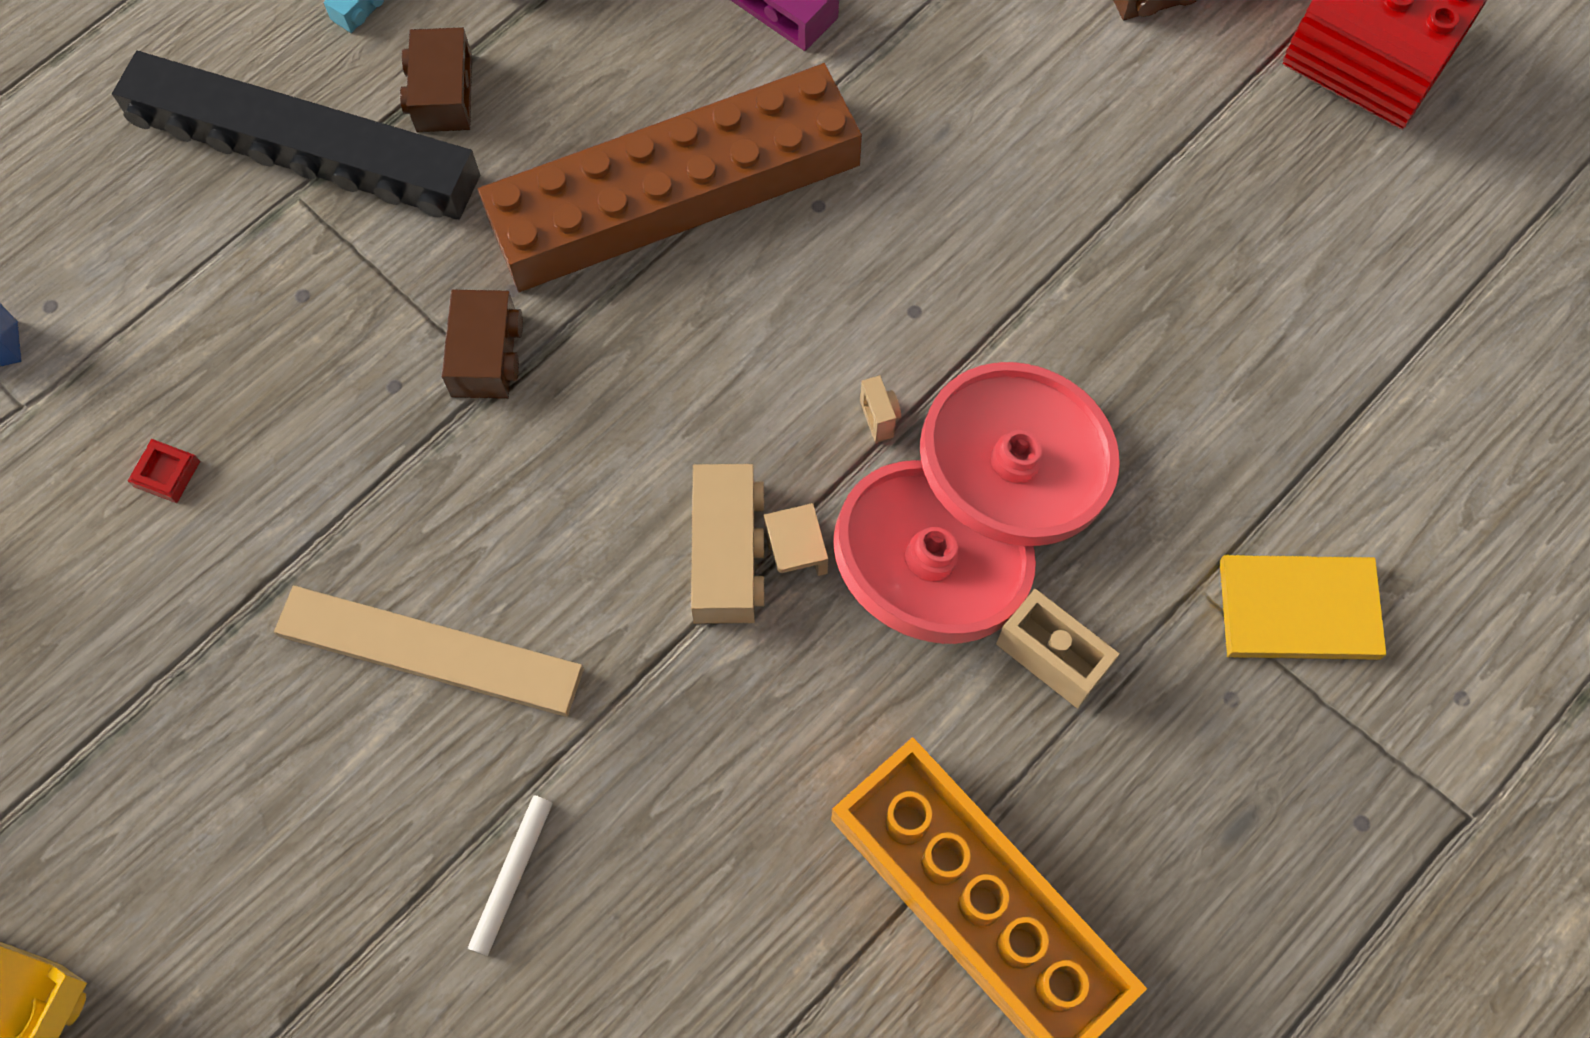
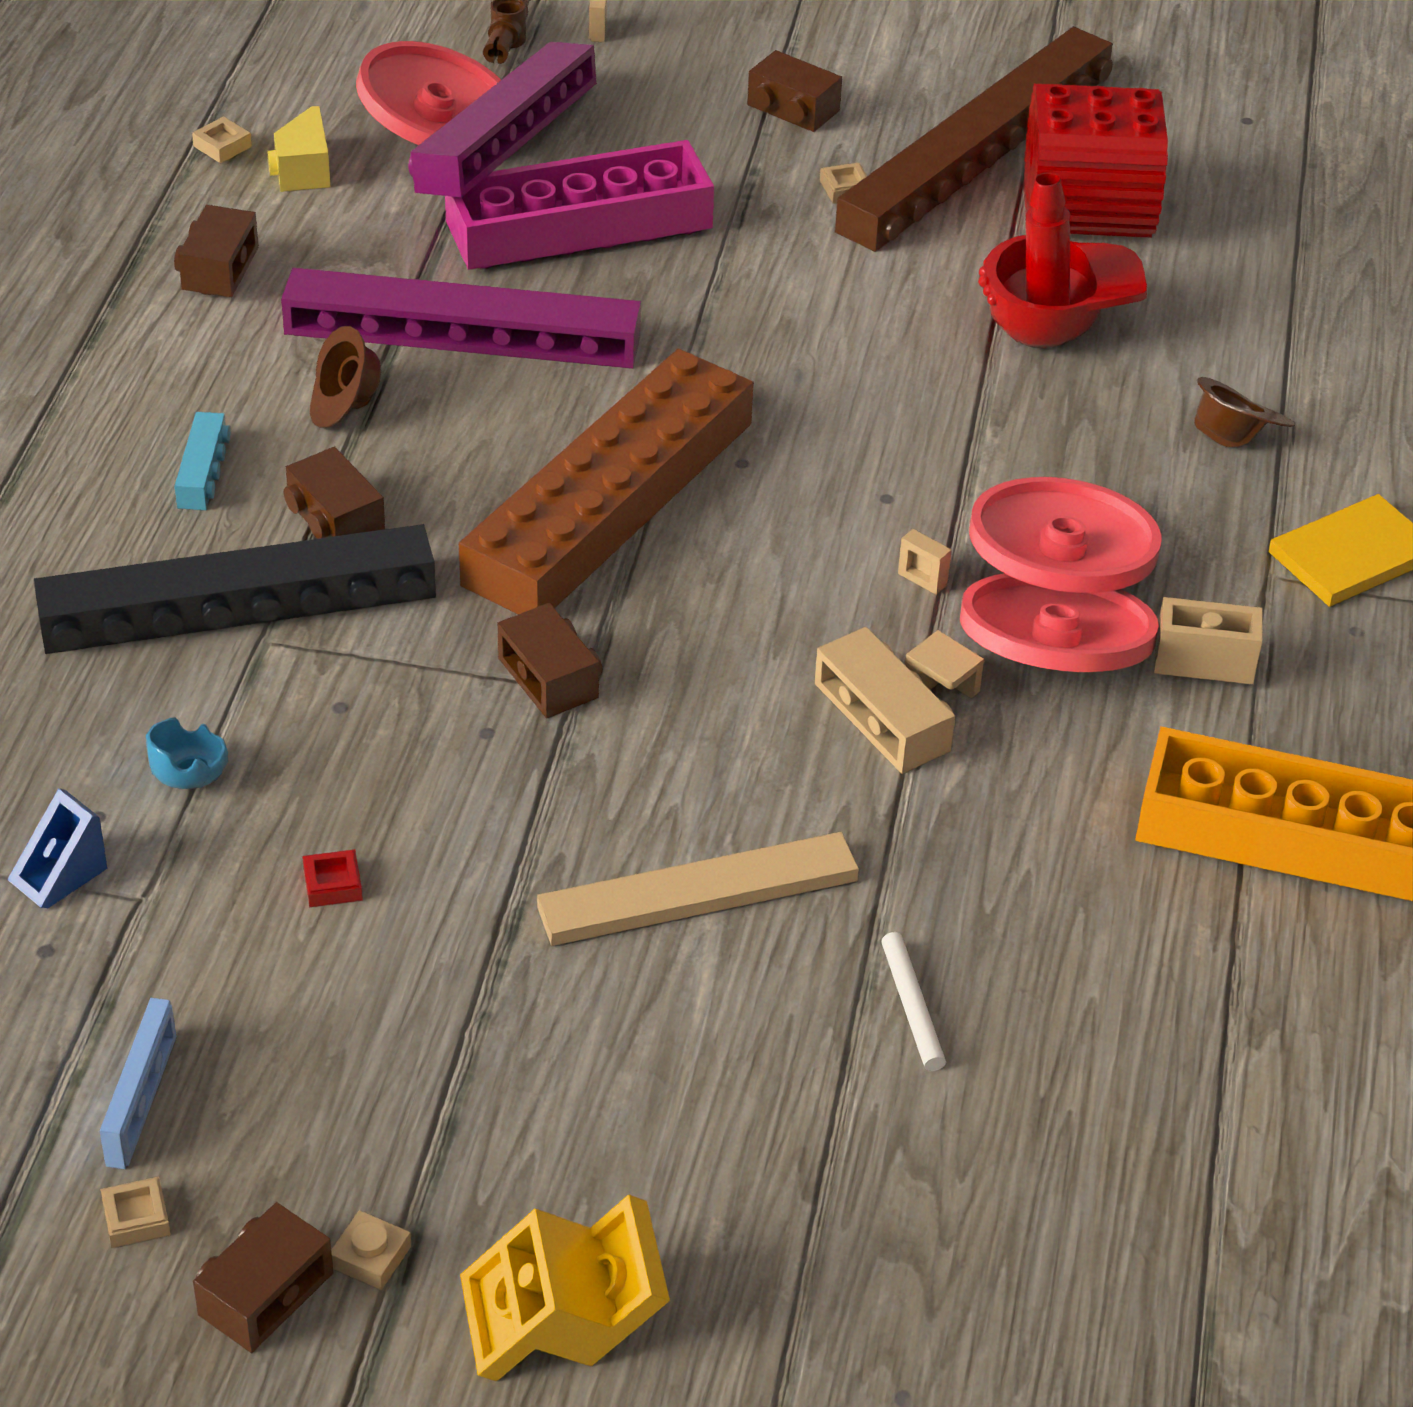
camera: 35 degrees left, 25 degrees down
(131, 287) = (185, 757): none -> dark azure hair
(1241, 152) = (1054, 288): none -> red piece
(1304, 392) = (1230, 416): none -> reddish brown piece

